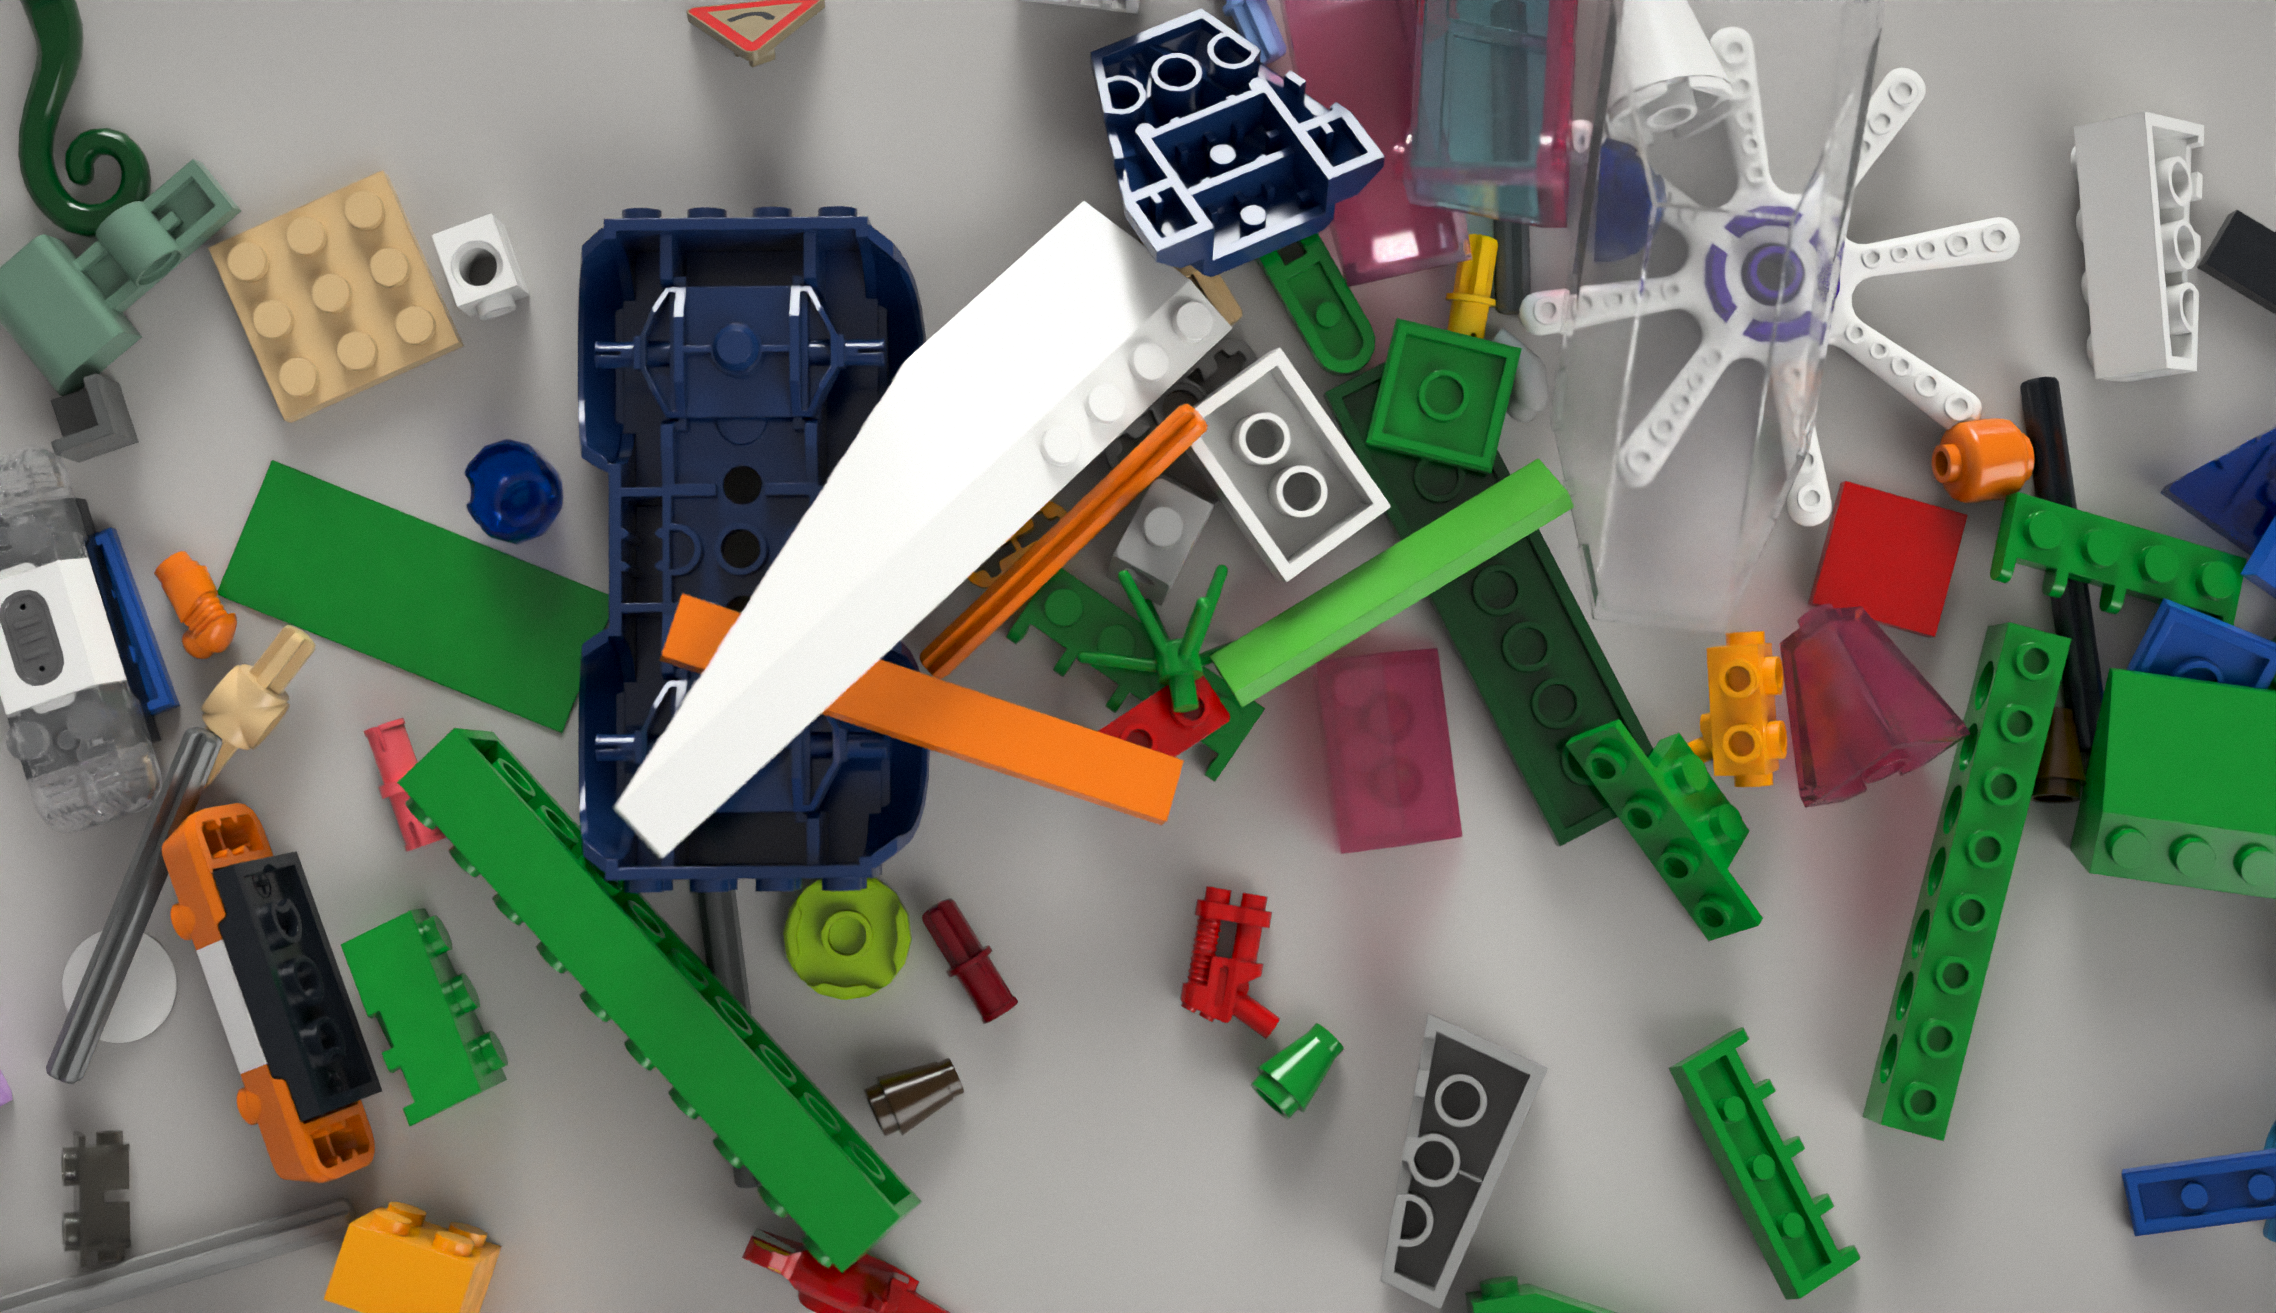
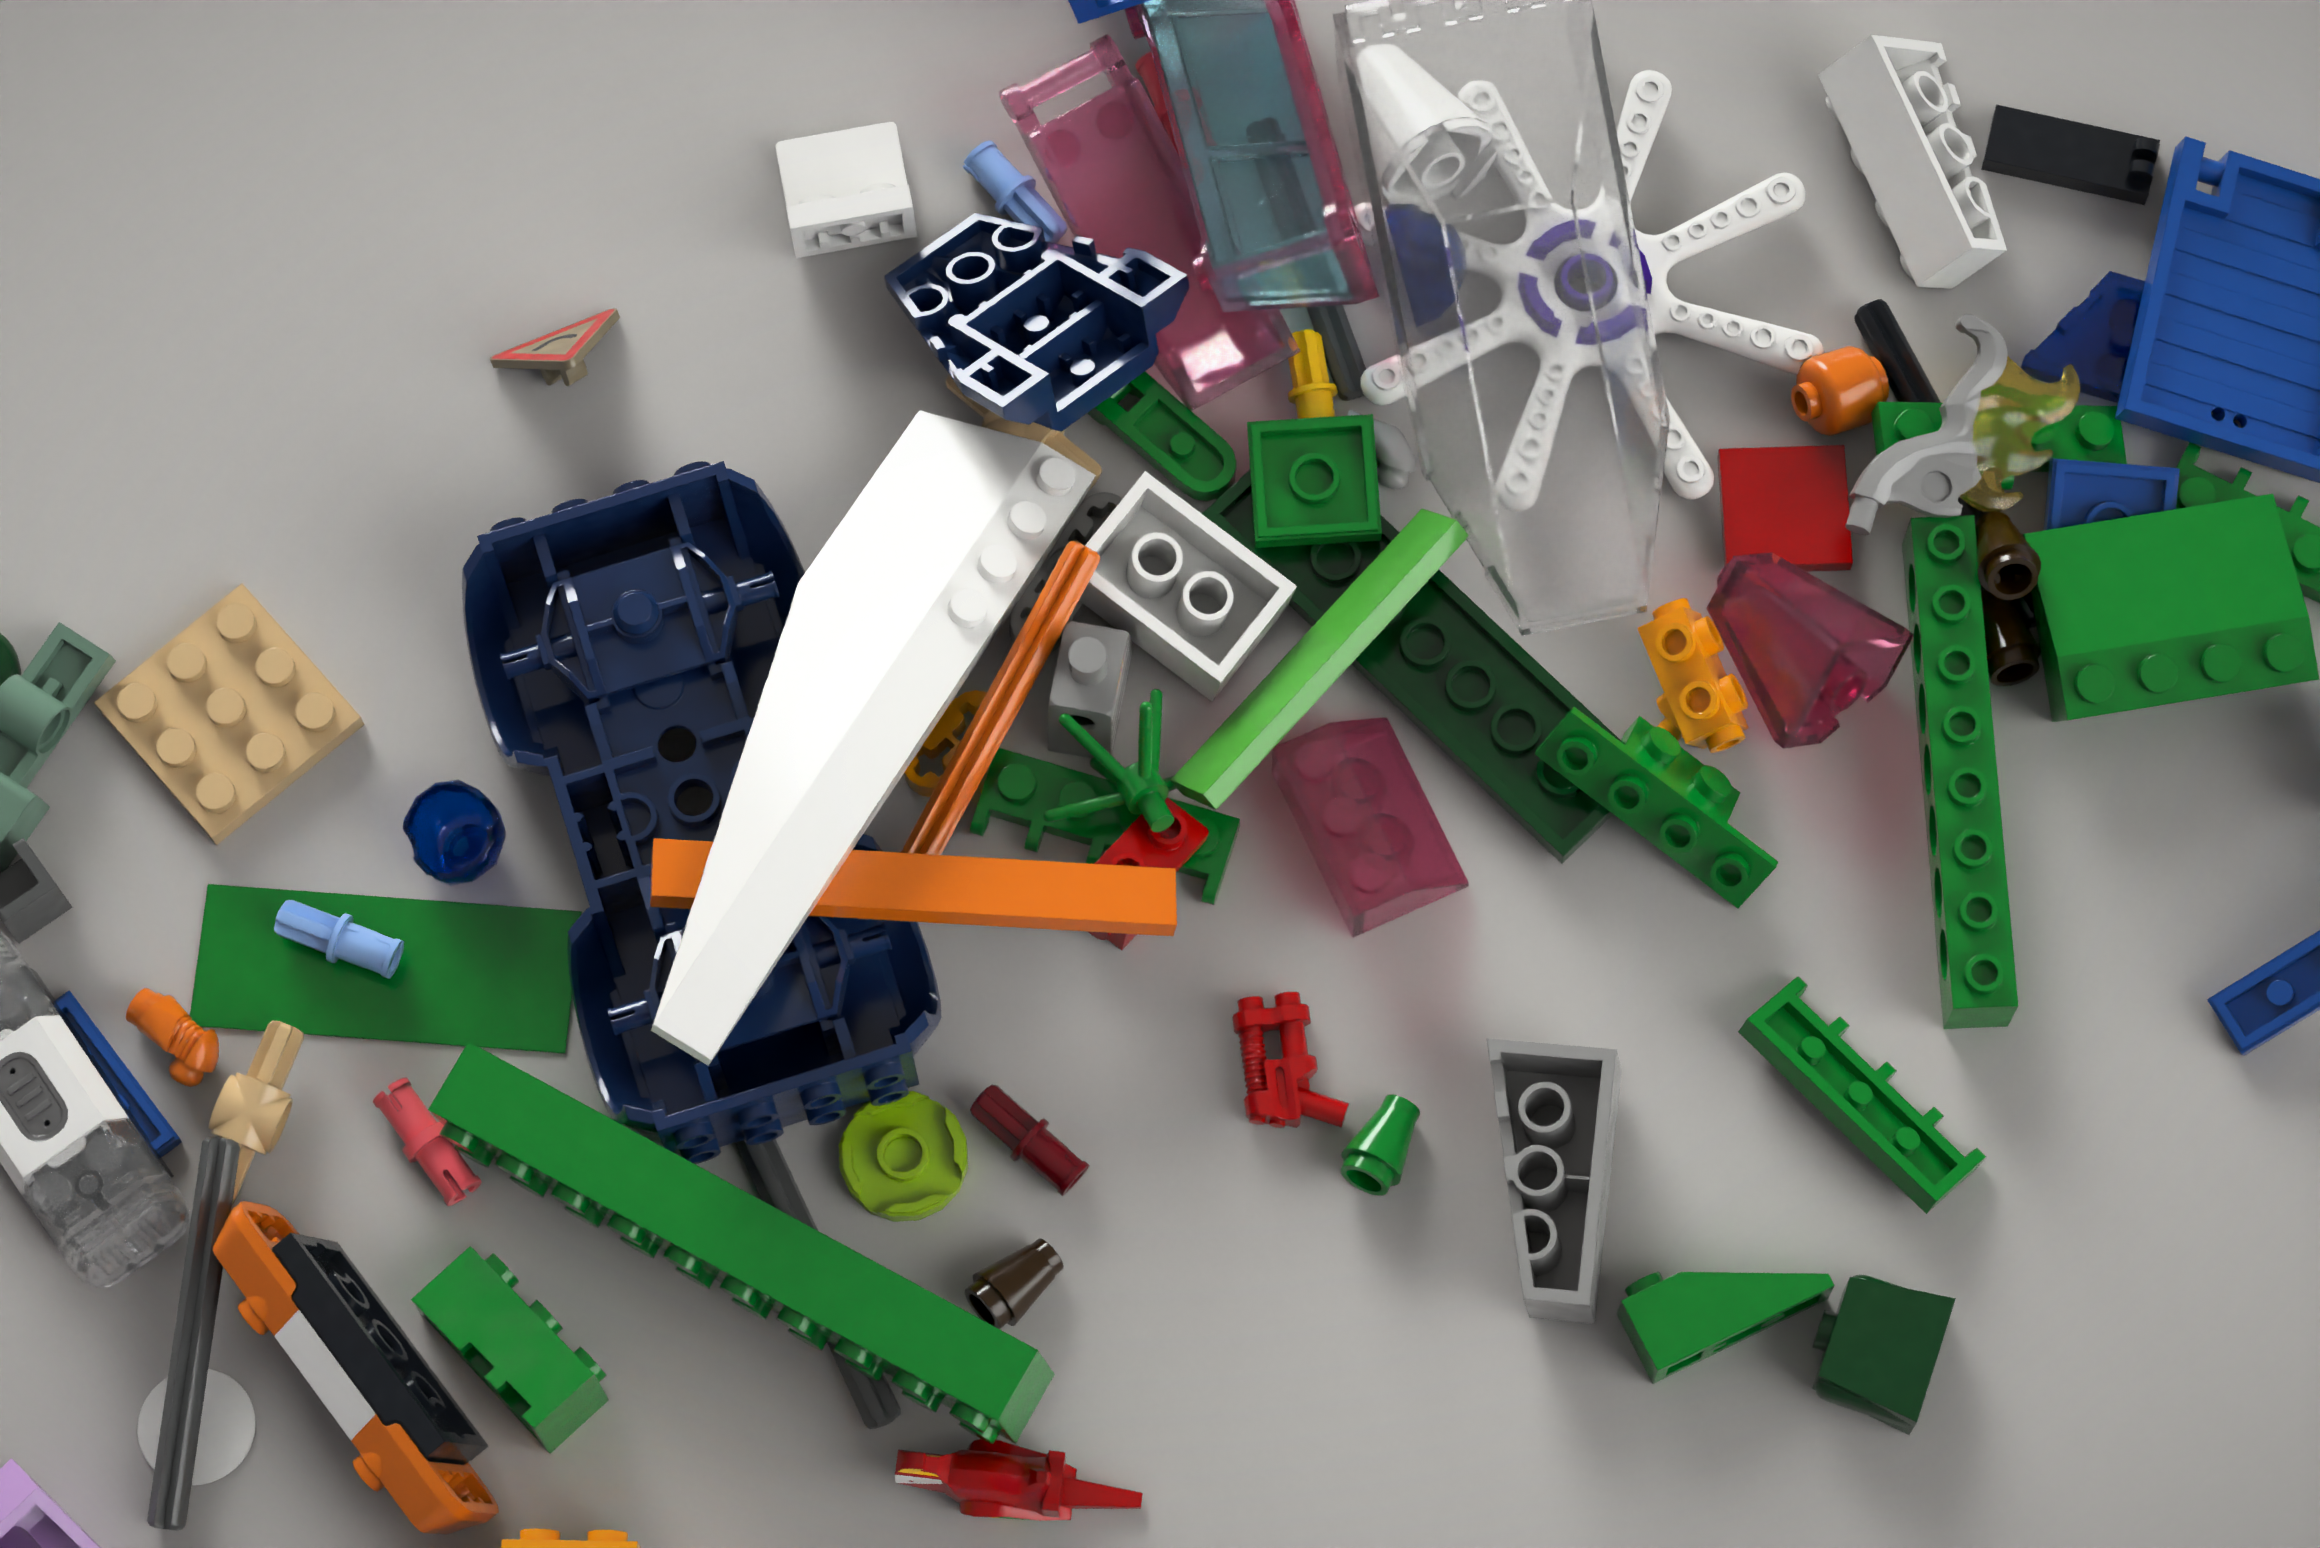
camera: 10 degrees left, 15 degrees down
(377, 558) = (339, 938): none -> light blue axle
(465, 245) = (354, 617): white brick -> none
(2086, 692) = (2004, 558): none -> dark brown cone
(2103, 567) = (1979, 443): none -> piece

